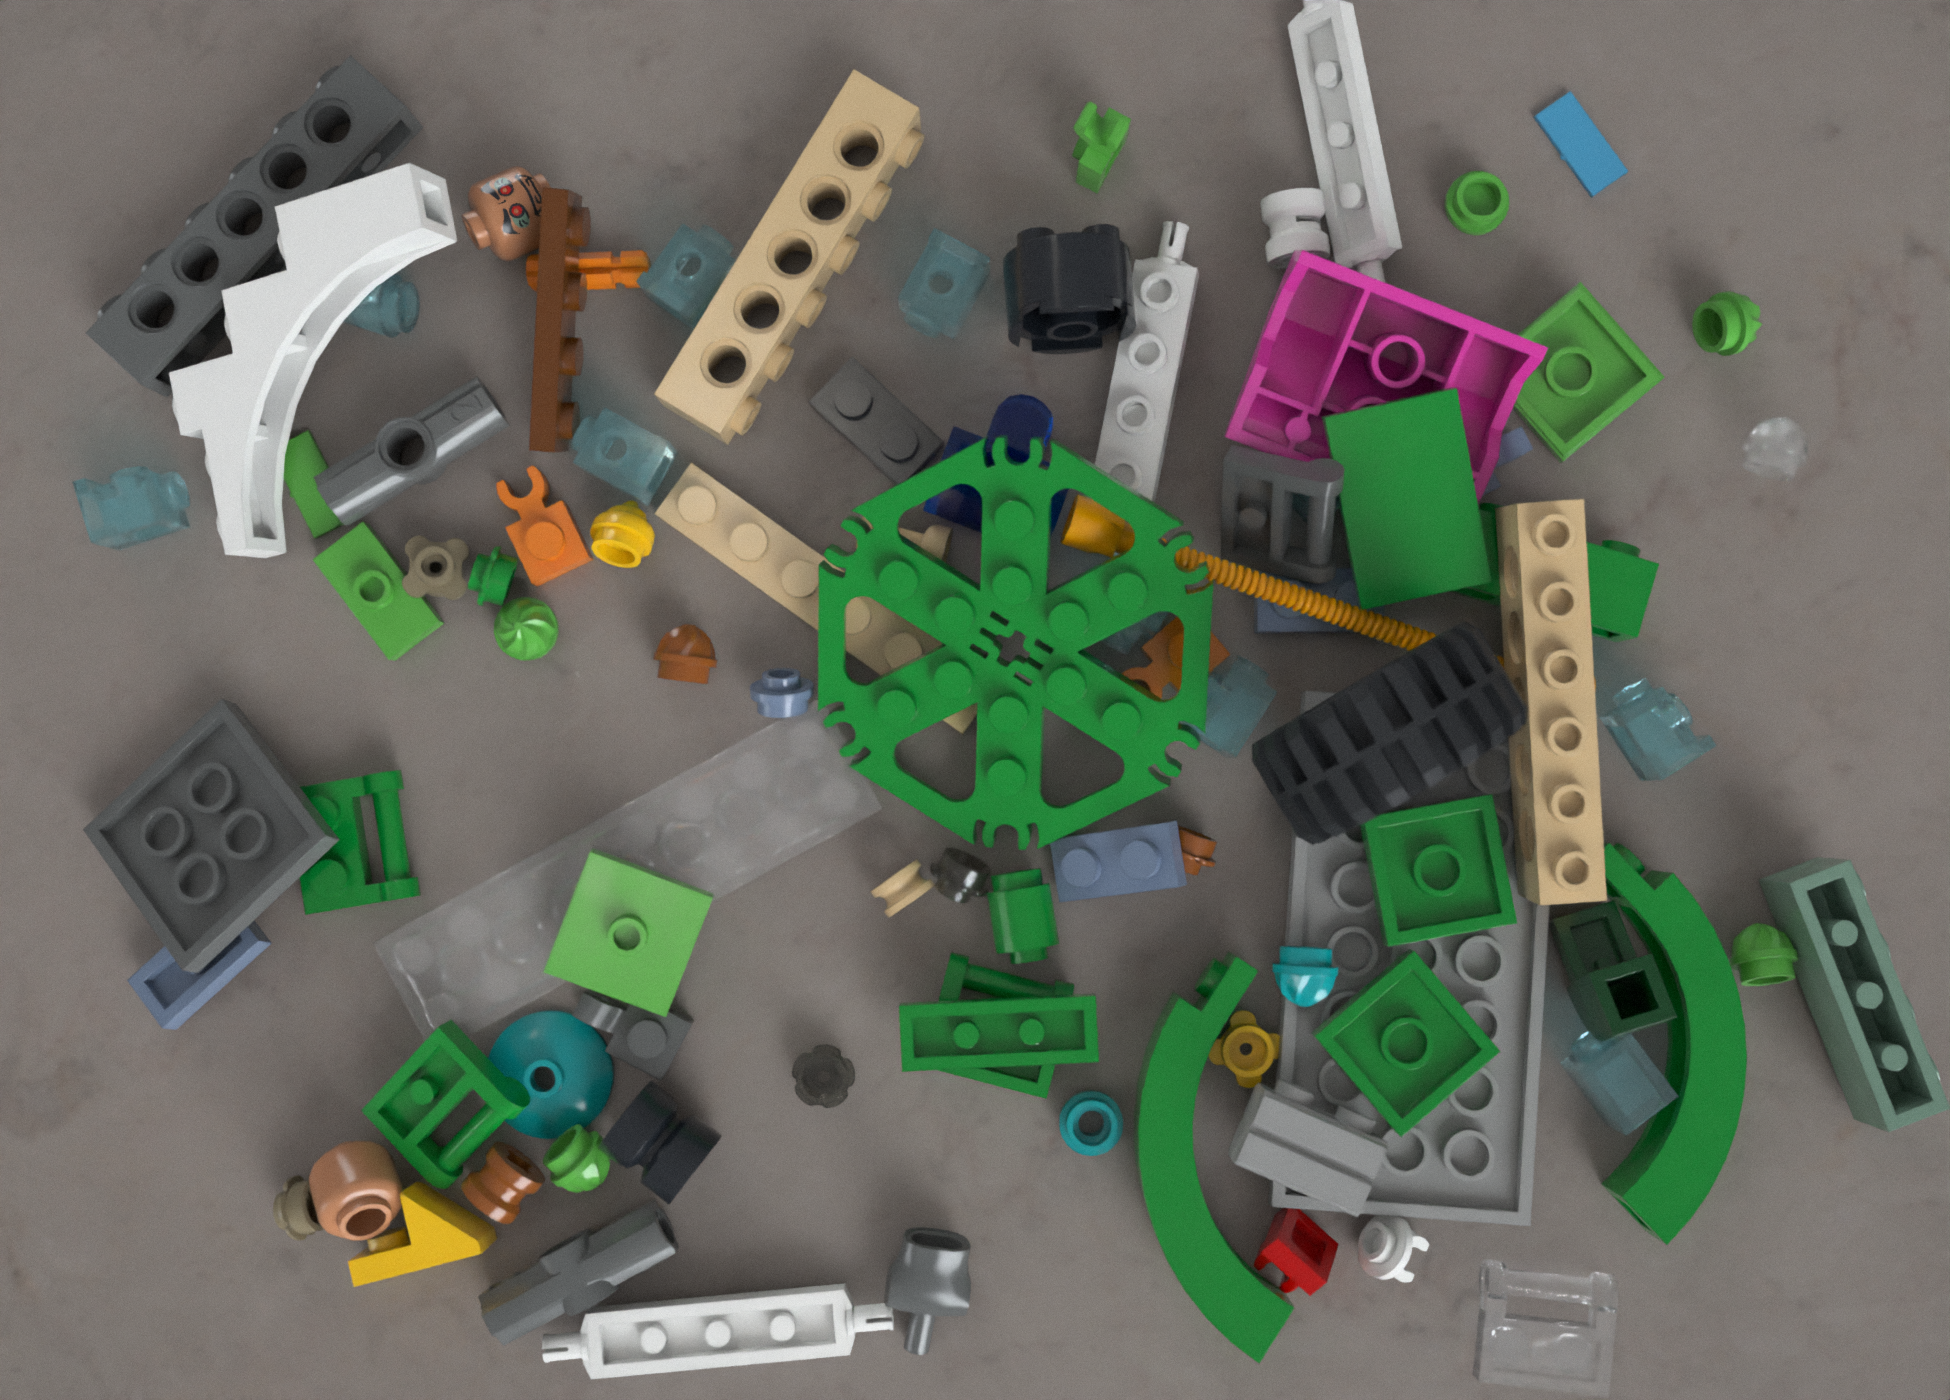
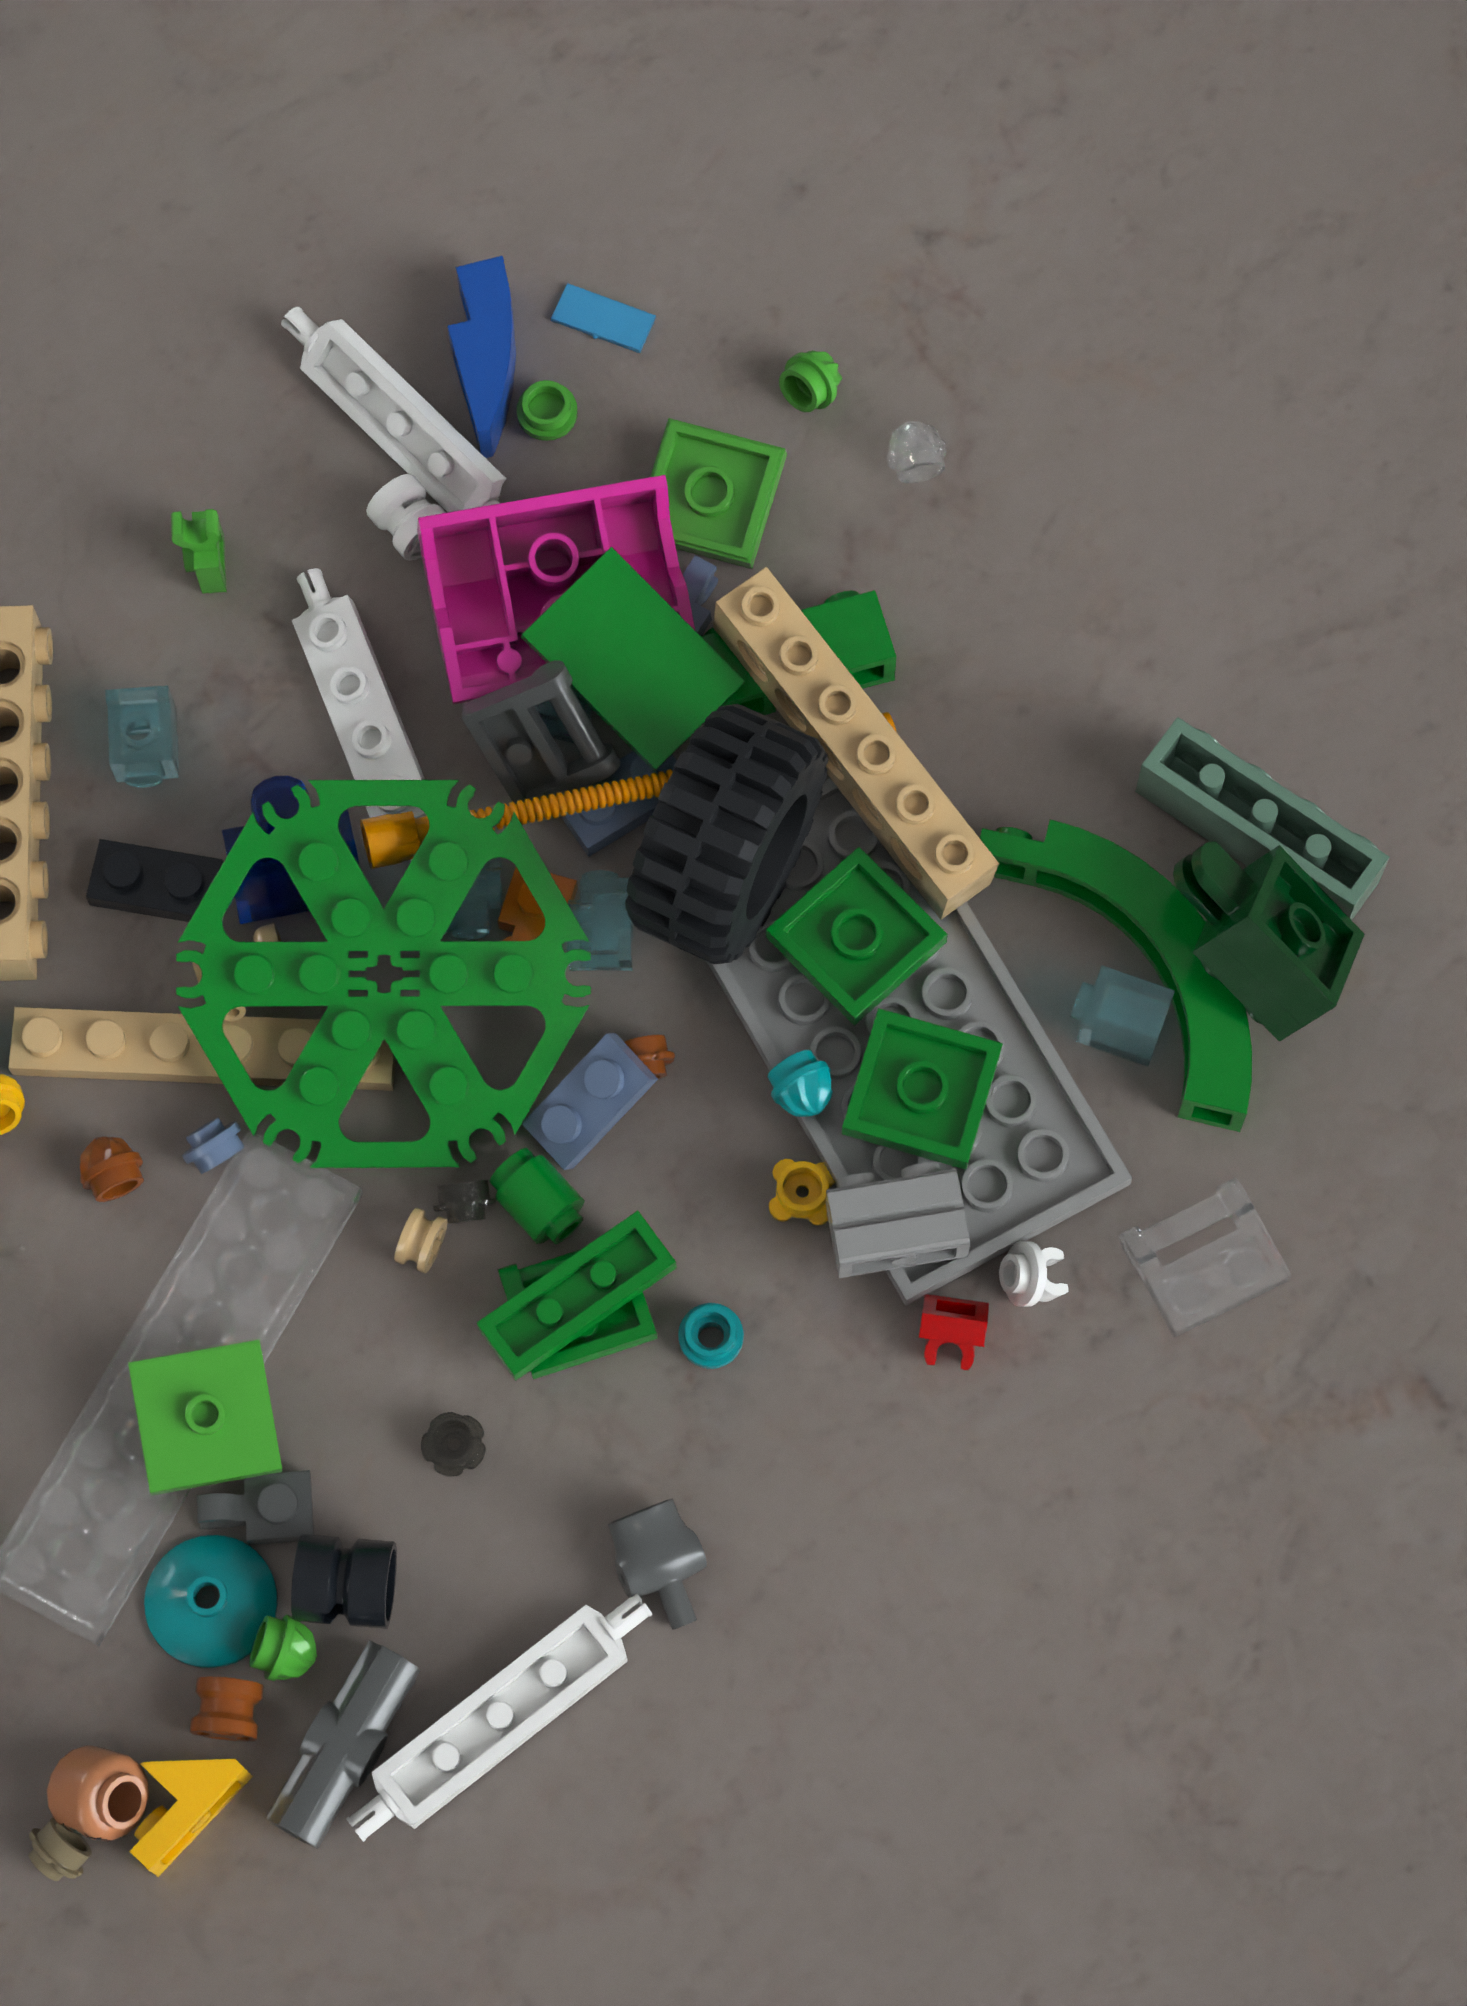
camera: 35 degrees left, 15 degrees down
(430, 1089) = (111, 1669): green plate -> none
(1068, 289) = (250, 672): black brick -> none
(1212, 1273) = (850, 1369): green arch -> none
(1461, 108) = (485, 348): none -> blue slope
(1608, 982) = (1059, 935): dark green brick -> none
(1654, 731) = (965, 725): clear light blue brick -> none
(1763, 956) = (1172, 841): bright green plate -> none
(1798, 1116) = (1269, 935): none -> dark green brick

